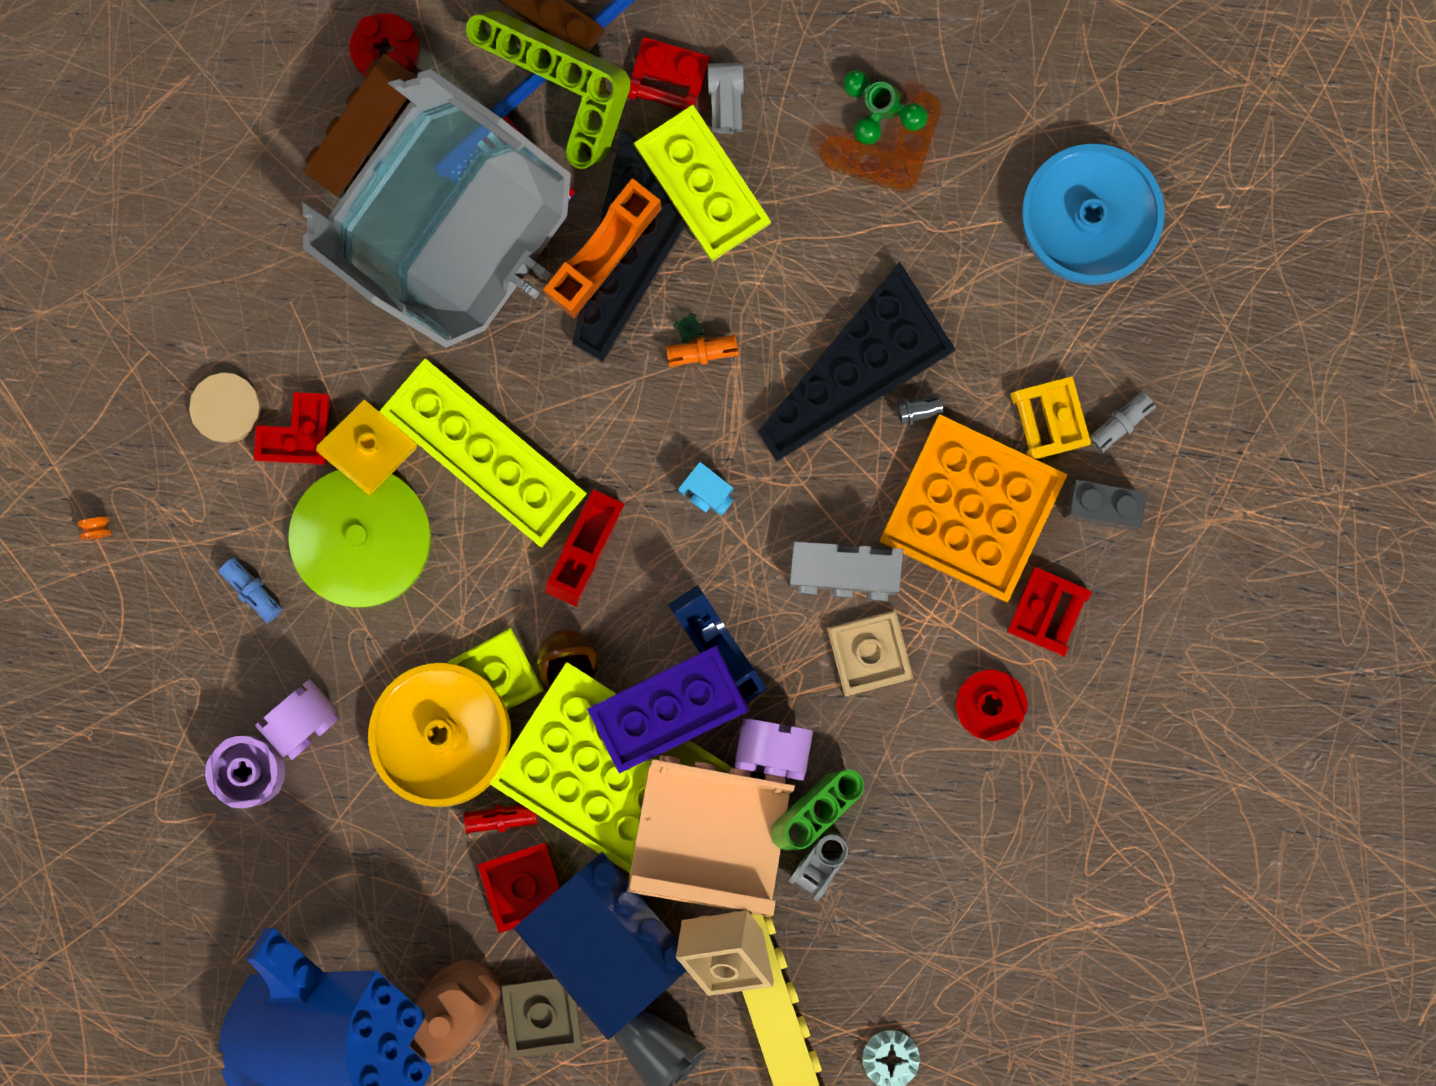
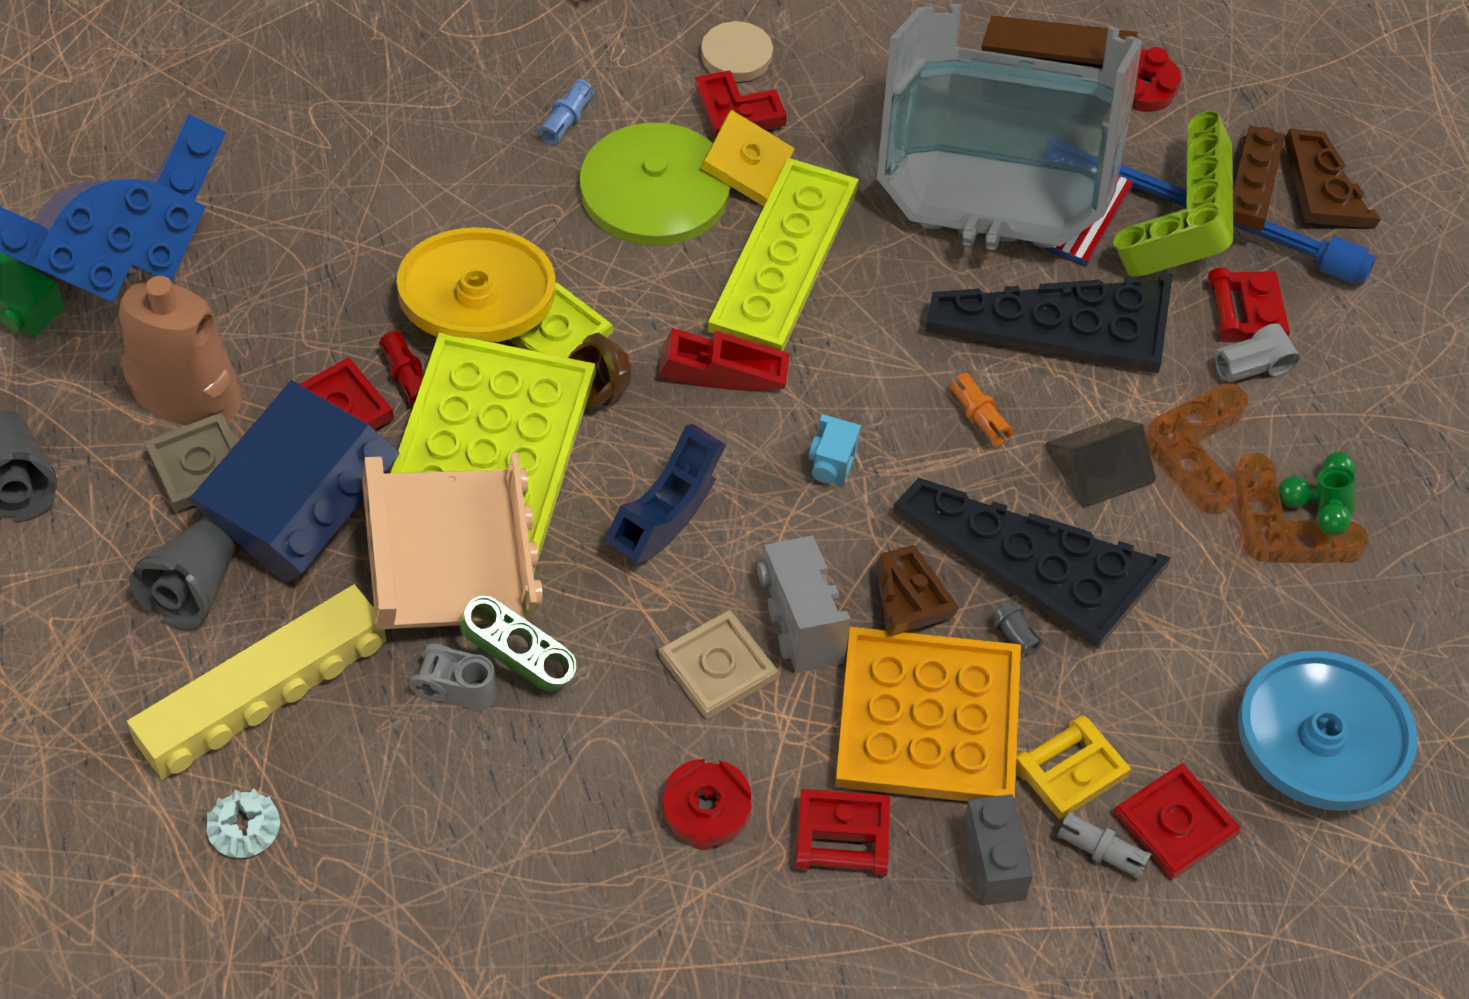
camera: 65 degrees right, 30 degrees down
(242, 791) = (382, 144): lavender brick -> none
(297, 719) = (449, 167): lavender brick -> none
(617, 233) = (998, 265): orange arch -> none
(668, 709) = (580, 456): dark purple plate -> none
(689, 328) = (1001, 393): clear green piece -> none
(702, 183) = (1154, 348): neon yellow plate -> none
(725, 953) = (320, 585): tan slope -> none
(773, 749) = (572, 581): lavender brick -> none
(781, 271) = (1103, 460): none -> clear smoke slope
(792, 197) = (1185, 444): none -> clear orange beam
(862, 480) = (911, 591): none -> reddish brown wing
(1117, 358) = (1176, 821): none -> red tile

